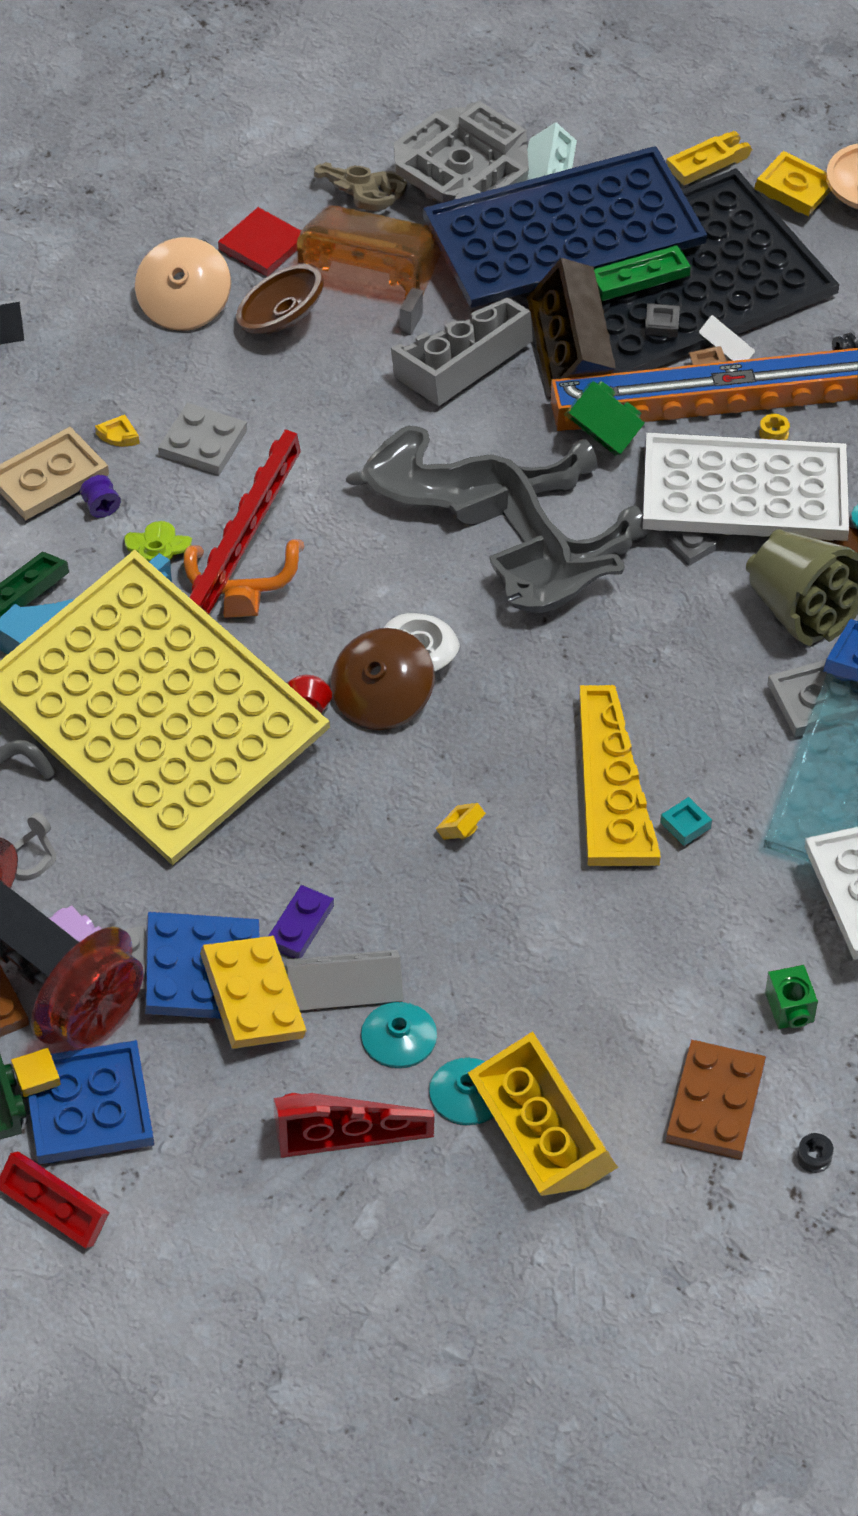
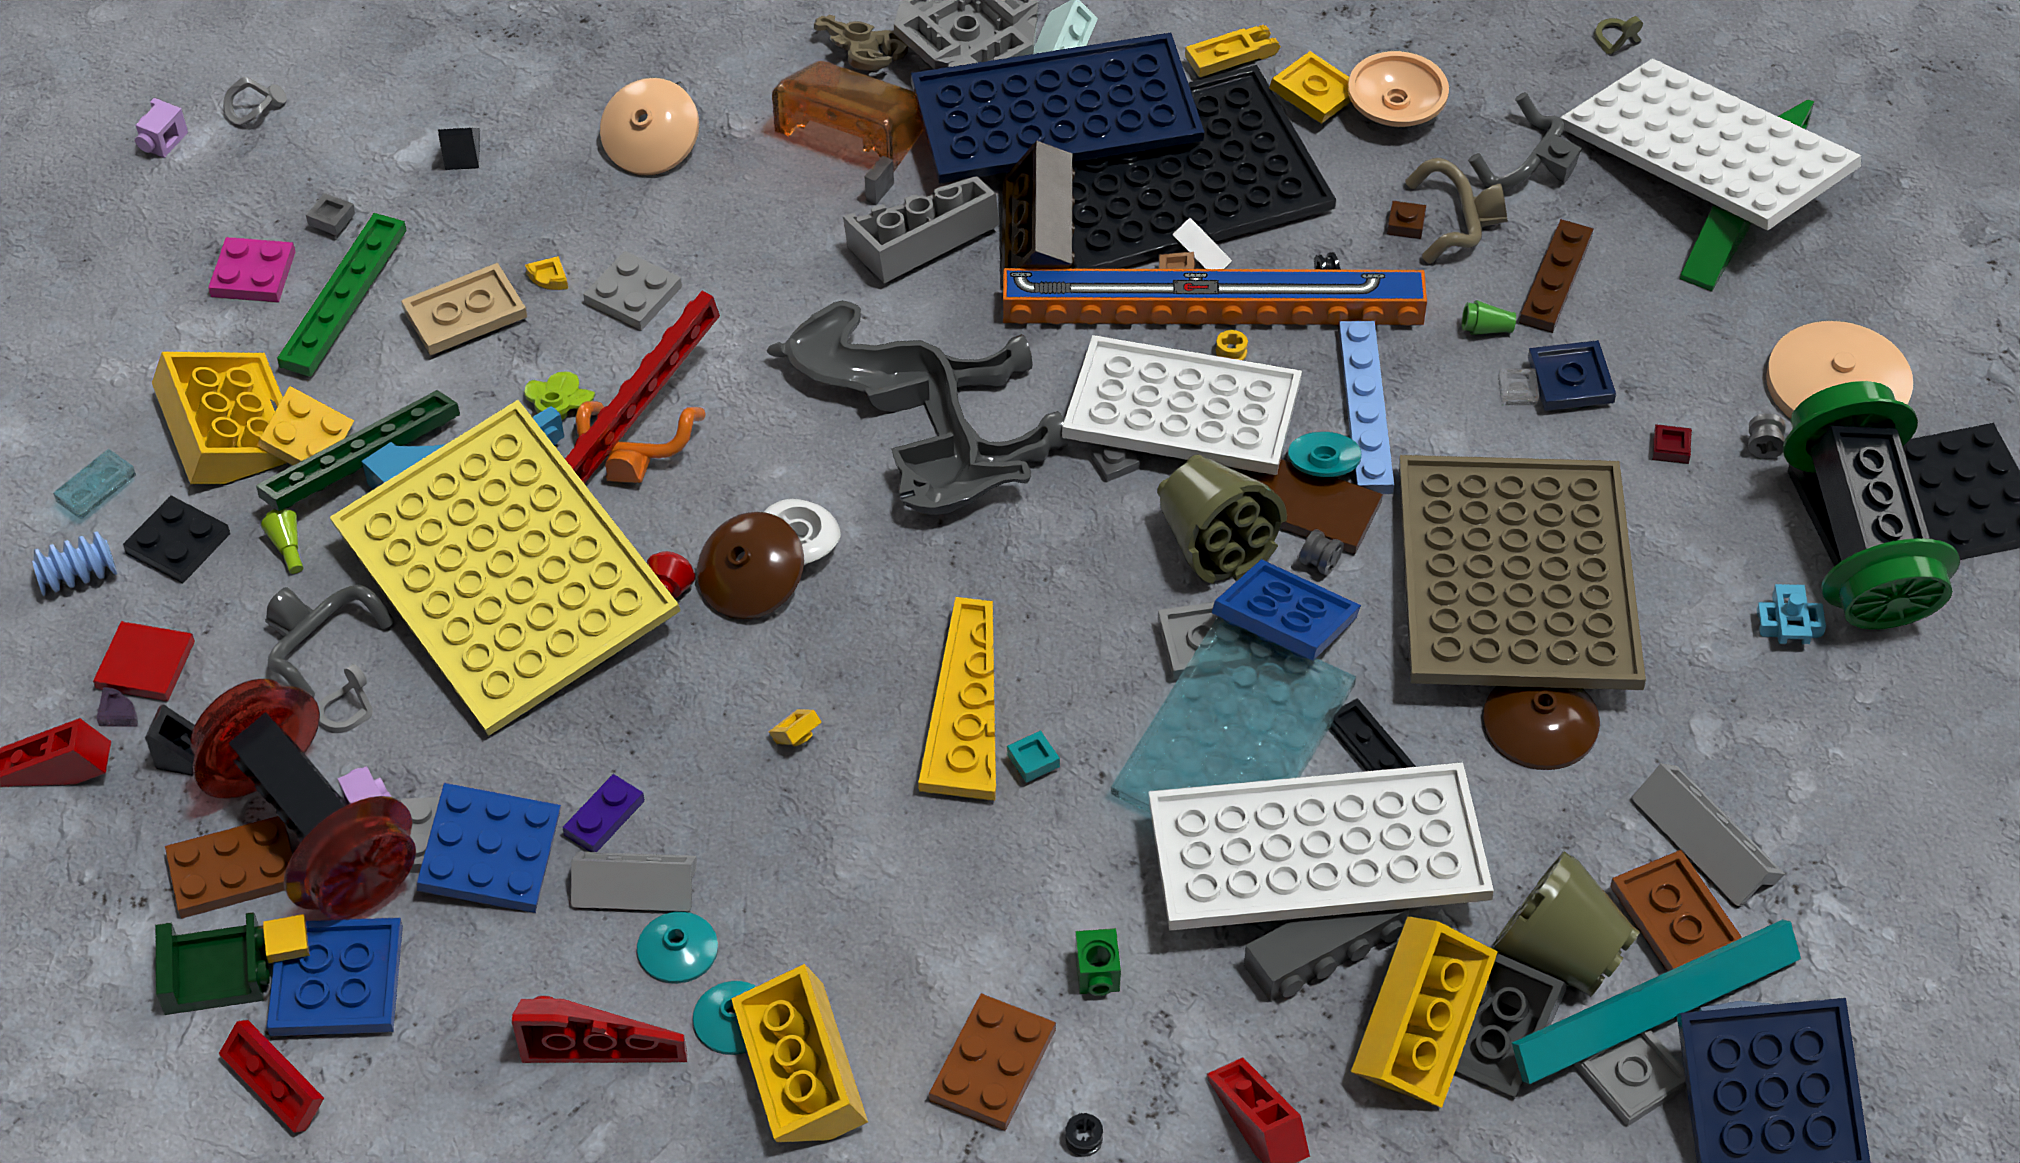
camera: 10 degrees right, 0 degrees up
(100, 496) = (510, 339): dark purple wheel -> none
(253, 992) = (530, 882): yellow plate -> none
(261, 241) = (742, 90): red tile -> none
(280, 299) = (745, 154): reddish brown dish -> none
(605, 417) = (1049, 314): green brick -> none
(641, 272) = (1124, 165): green plate -> none
(662, 320) = (1137, 217): flat silver tile -> none

